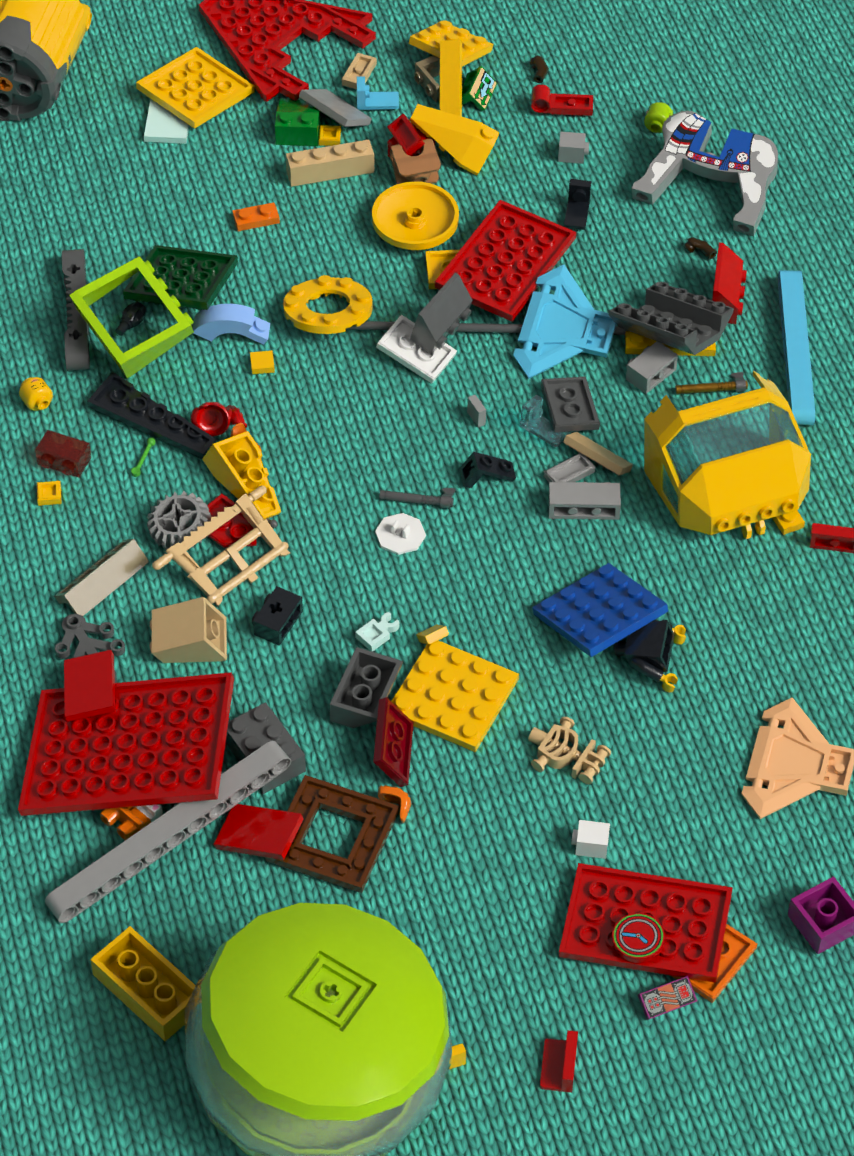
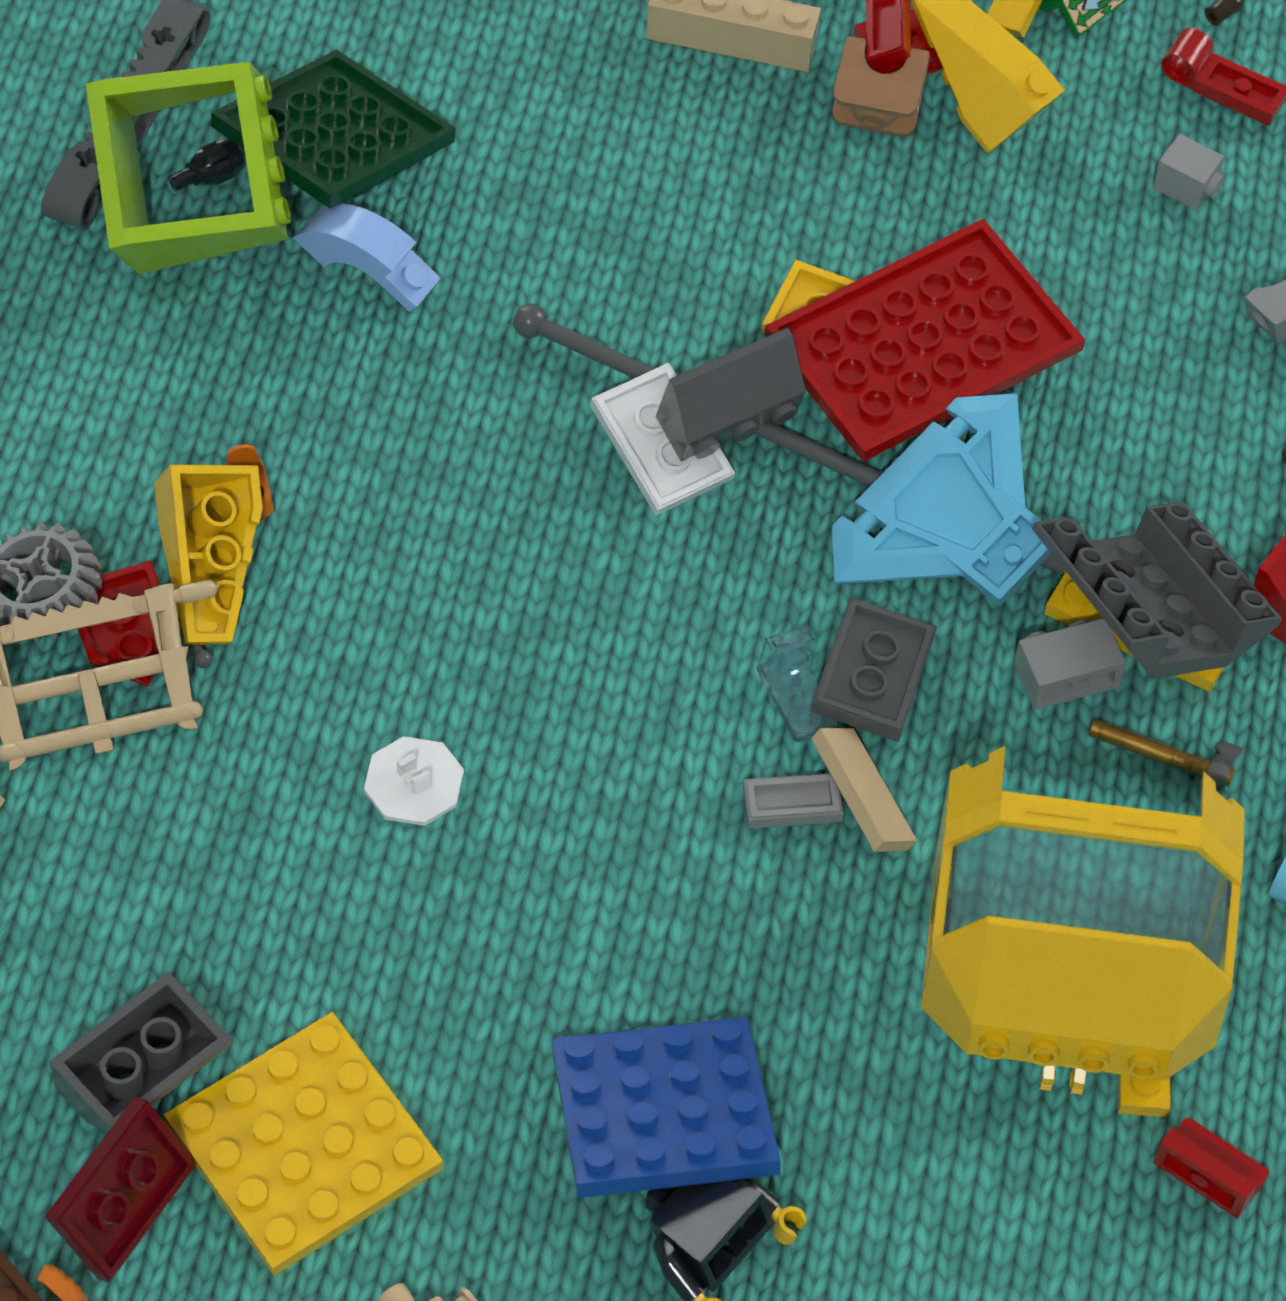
camera: 25 degrees right, 5 degrees up
(135, 471) = (38, 452): bright green hinge -> none
(136, 409) = (110, 340): black wing -> none
(216, 418) = (226, 415): red hair -> none
(256, 216) = (546, 69): orange plate -> none
(262, 362) = (381, 344): yellow tile -> none
(277, 615) = (91, 840): black brick -> none
(307, 320) = (531, 325): yellow plate -> none
(375, 634) = (238, 955): light aqua plate -> none
(415, 215) = (817, 185): yellow dish -> none
(432, 634) = (337, 1007): yellow tile -> none
(443, 501) = (527, 754): dark grey piece -> none
(476, 411) = (694, 606): light grey tile -> none
(480, 464) = (642, 723): black bracket -> none
(578, 204) = (1131, 289): black bracket -> none
(584, 500) = (778, 871): light grey brick -> none

